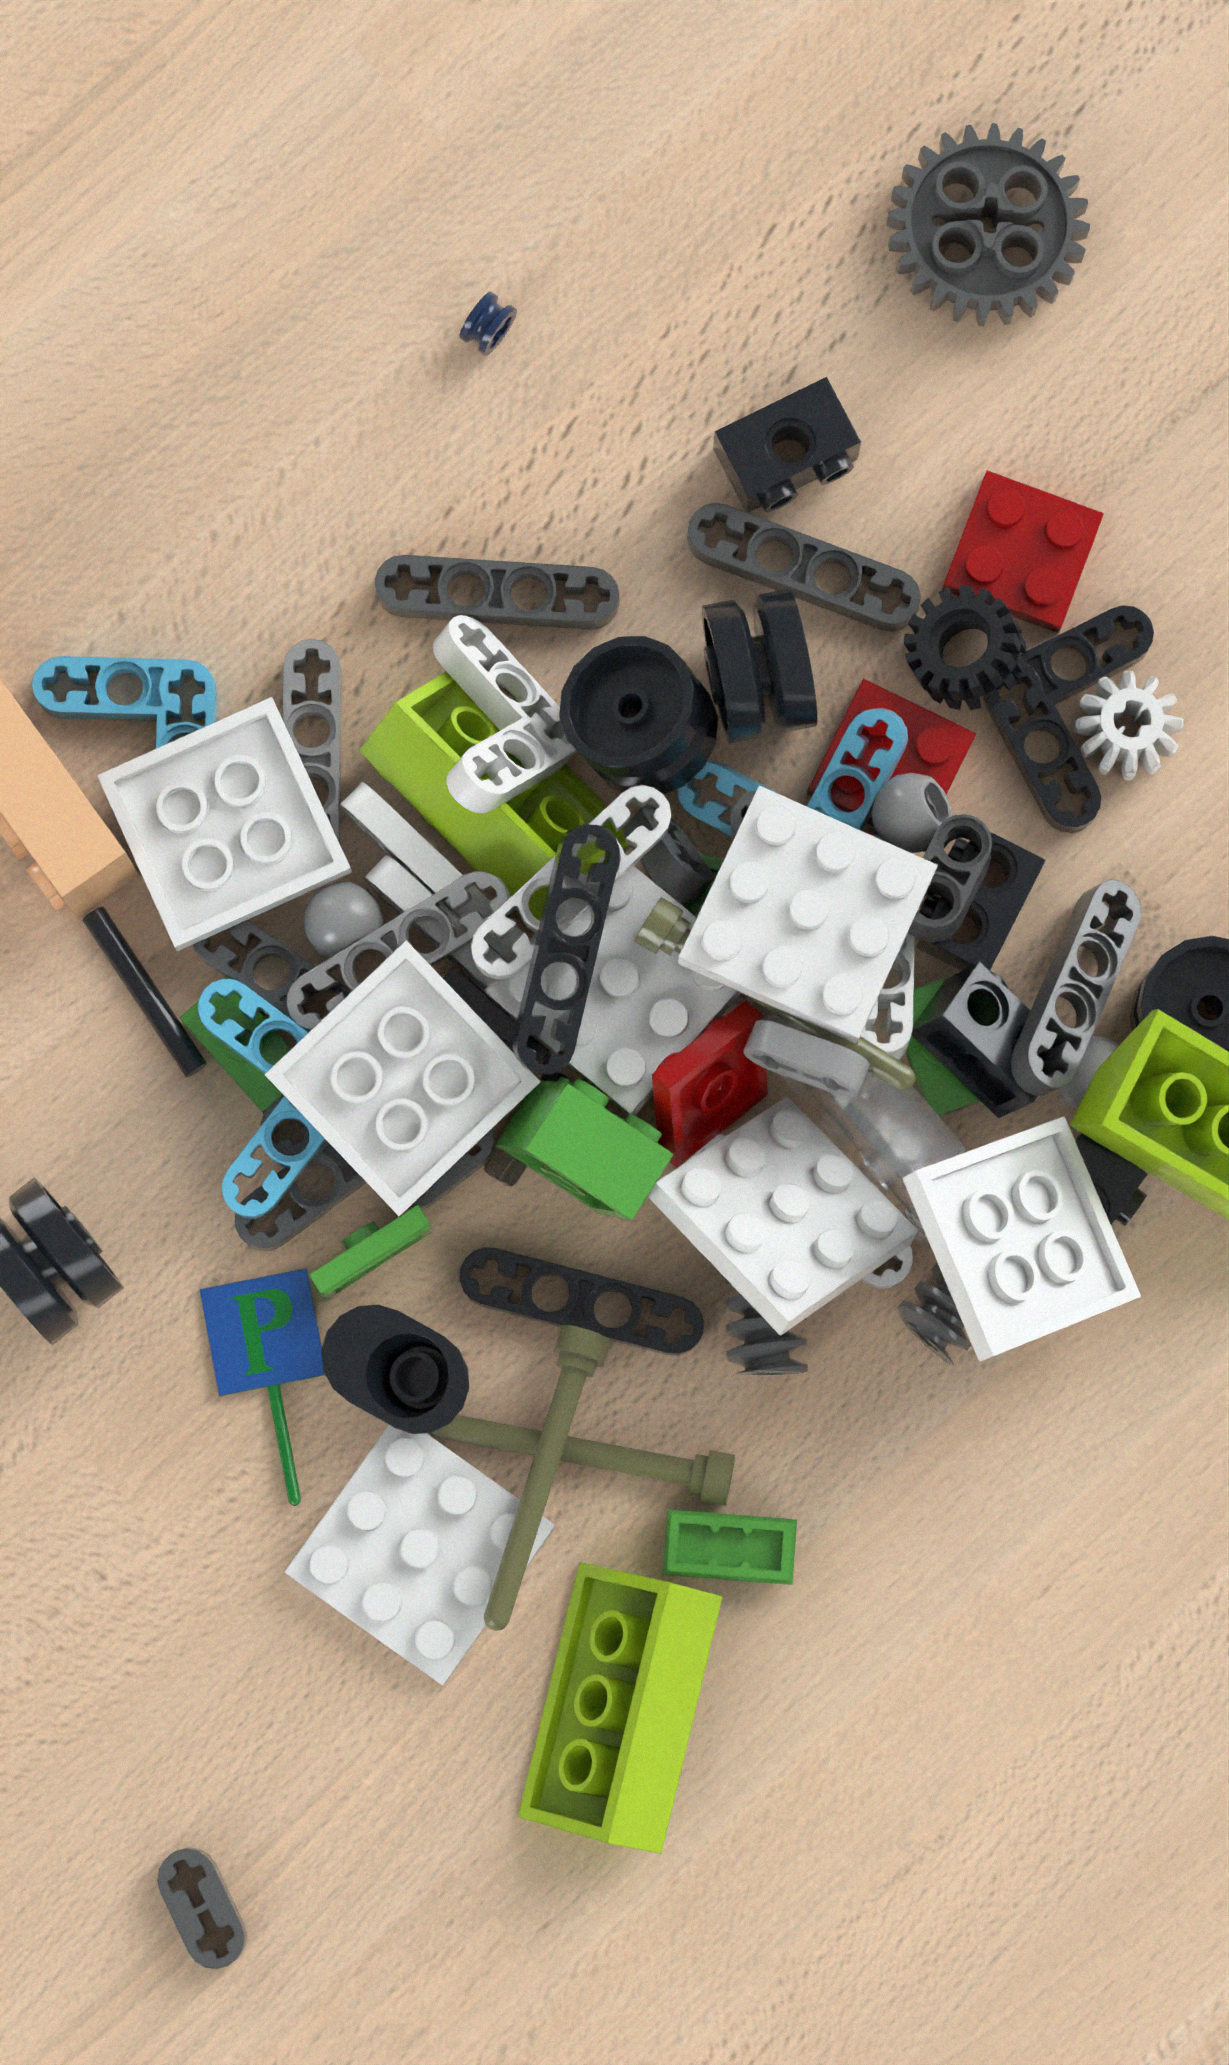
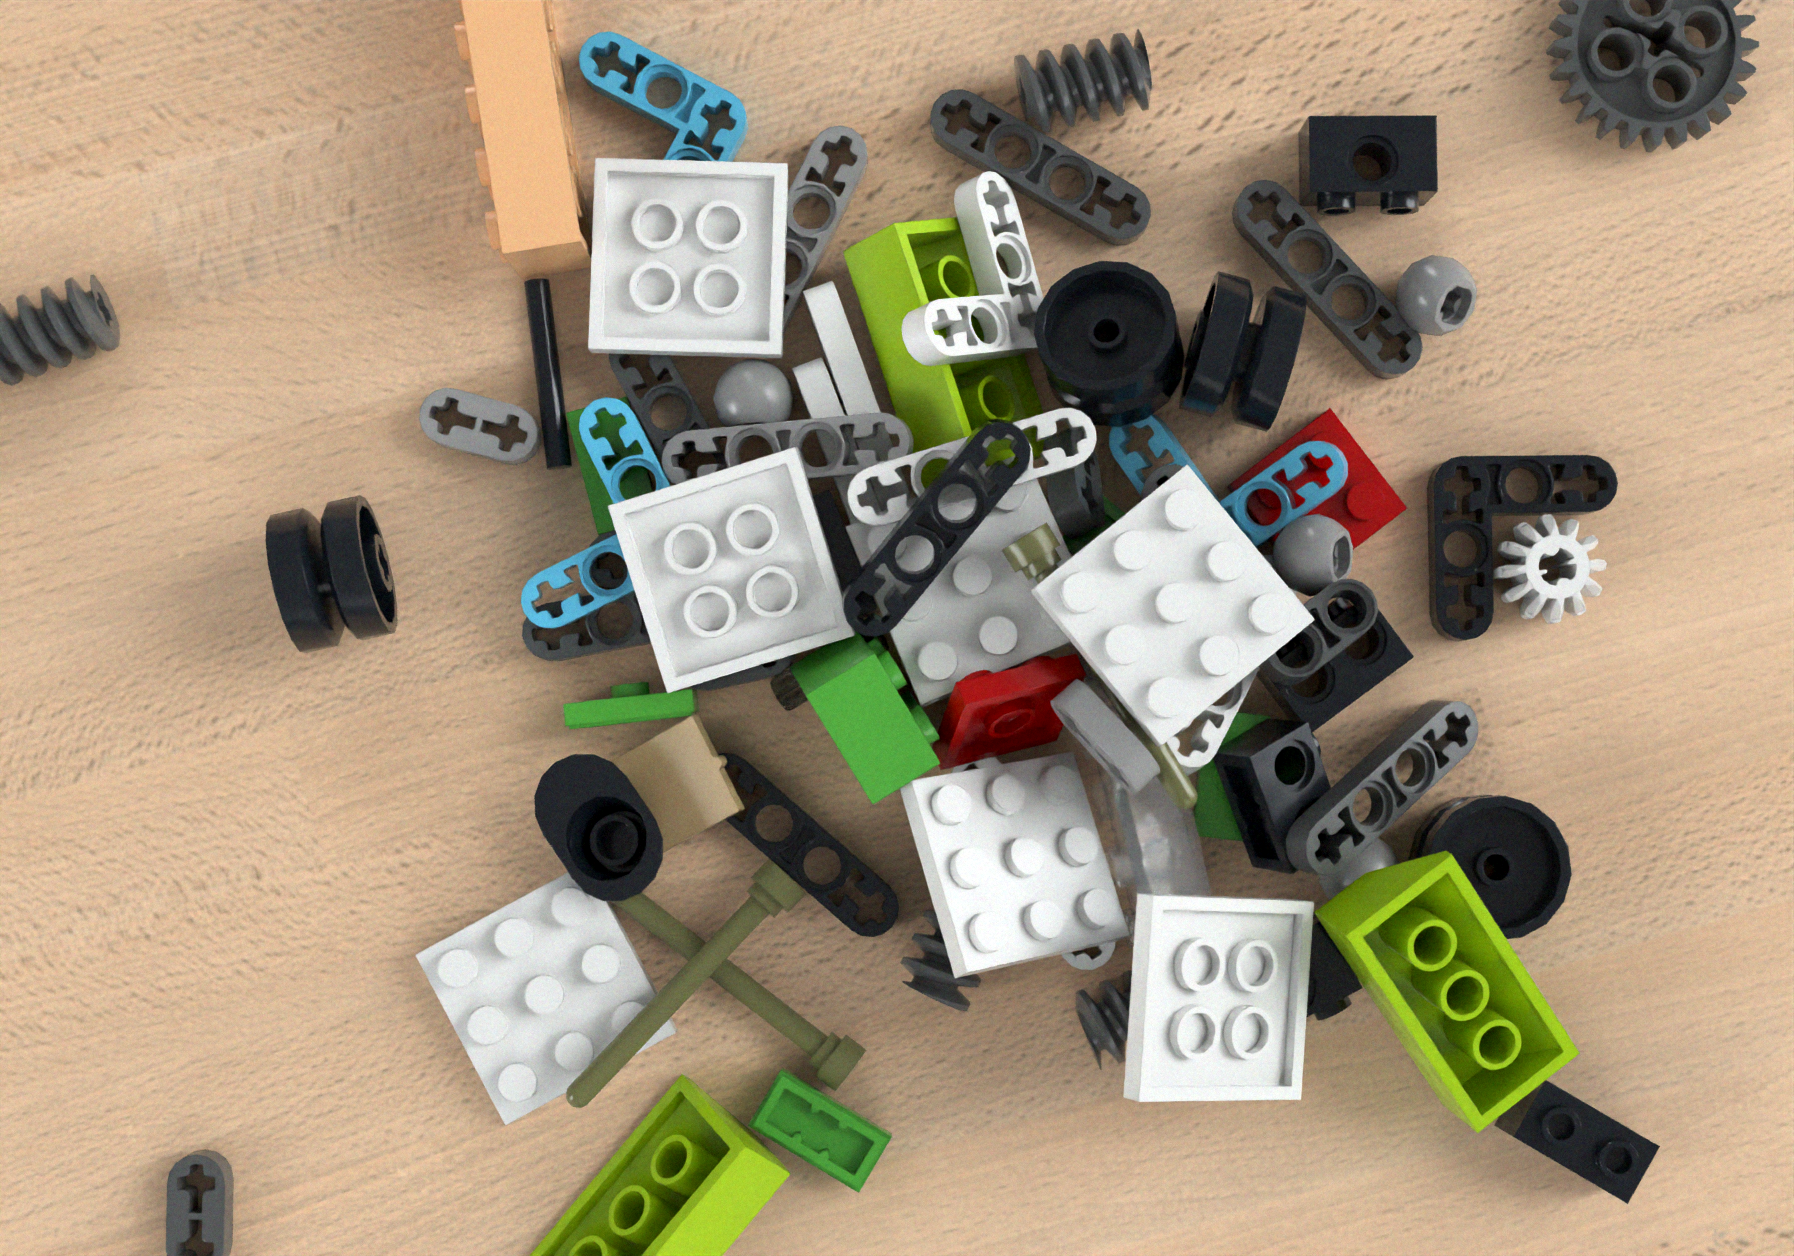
camera: 25 degrees right, 5 degrees up
(104, 1053) = (485, 412): none -> light grey beam
(265, 1337) = (501, 735): blue piece -> none
(450, 1292) = (681, 781): none -> tan piece
(499, 496) = (1084, 81): none -> dark grey piece
(906, 533) = (1436, 295): none -> light grey piece
(942, 624) = (1431, 392): black tyre -> none
(1024, 549) = (1532, 363): red plate -> none

